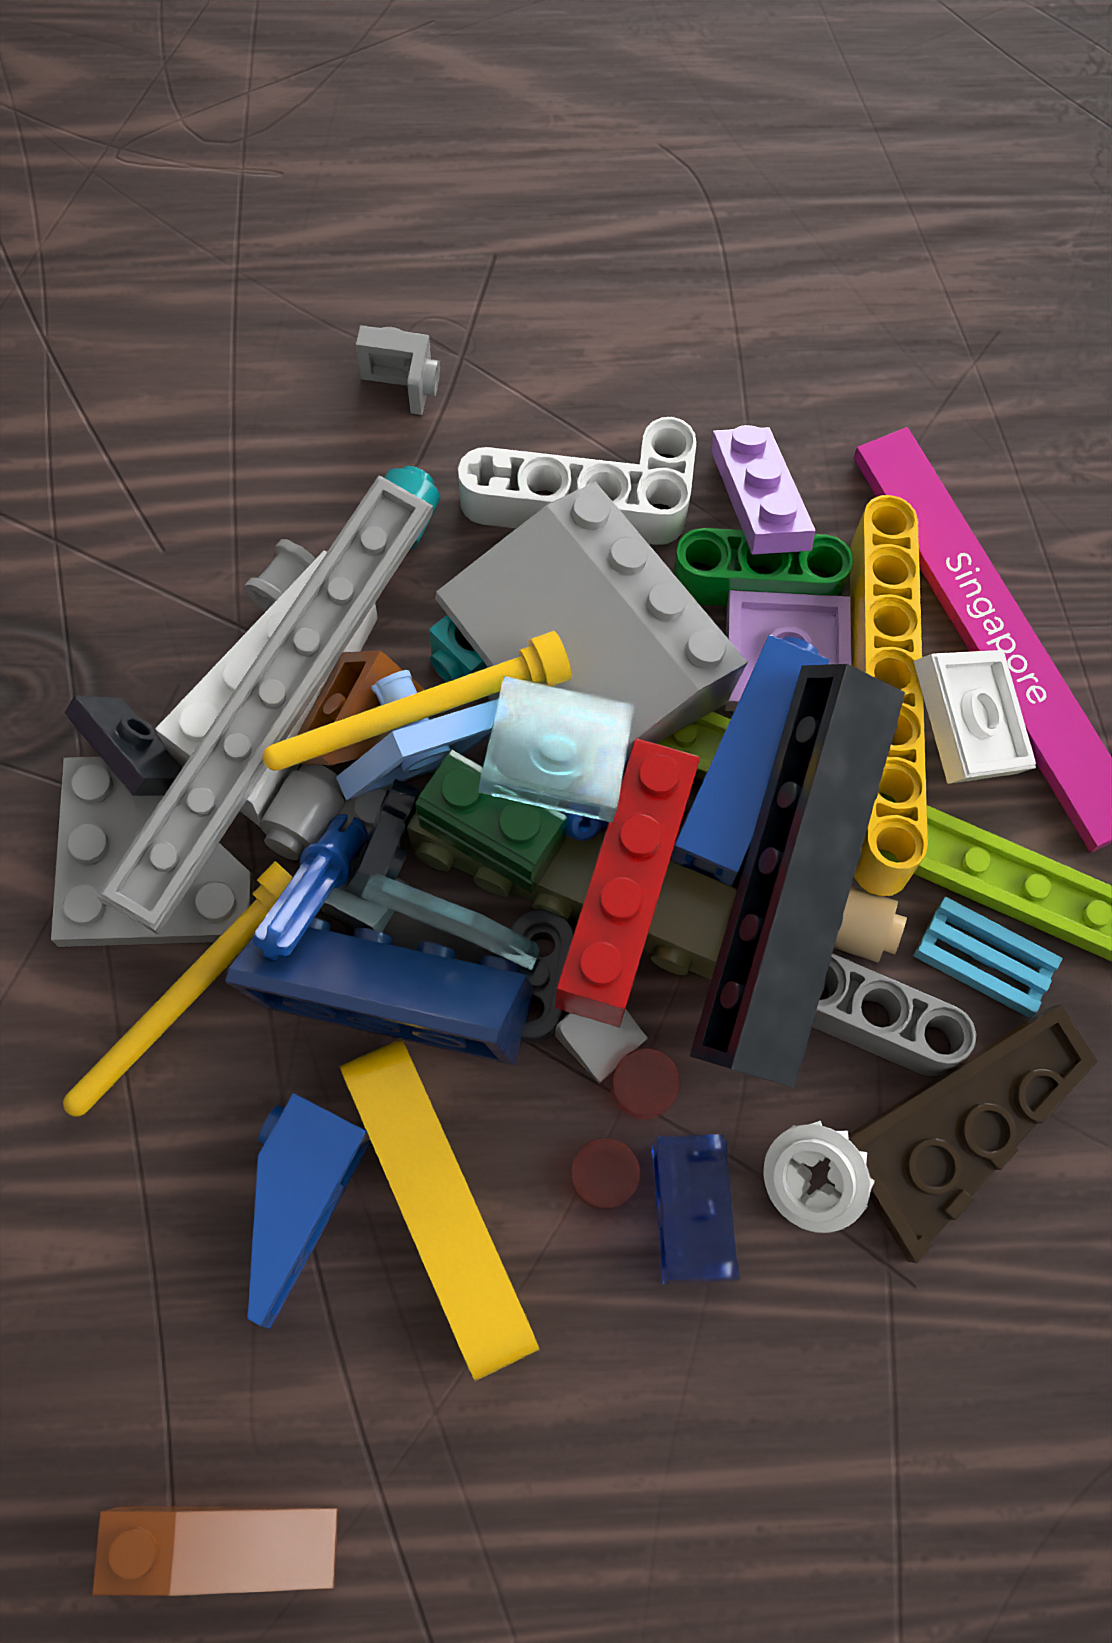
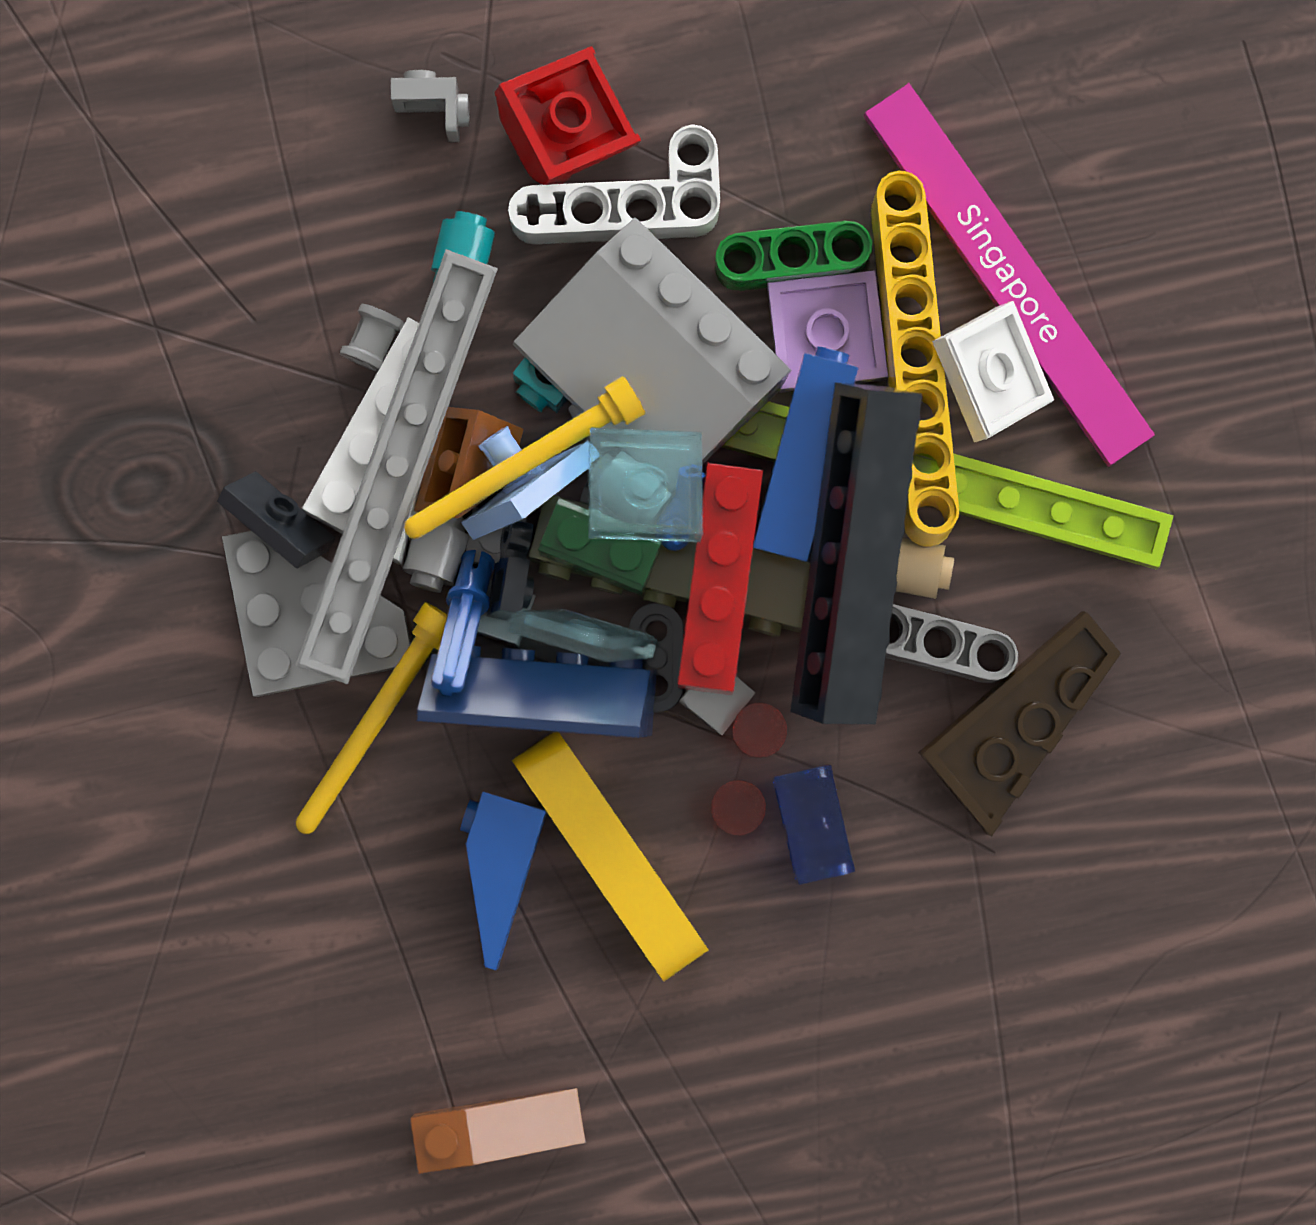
camera: 10 degrees left, 15 degrees up
(534, 395) = (563, 118): none -> red slope
(762, 491) = (782, 181): plate -> none
(788, 1178) = (883, 785): white gear -> none
(998, 936) = (1033, 556): medium azure tile -> none

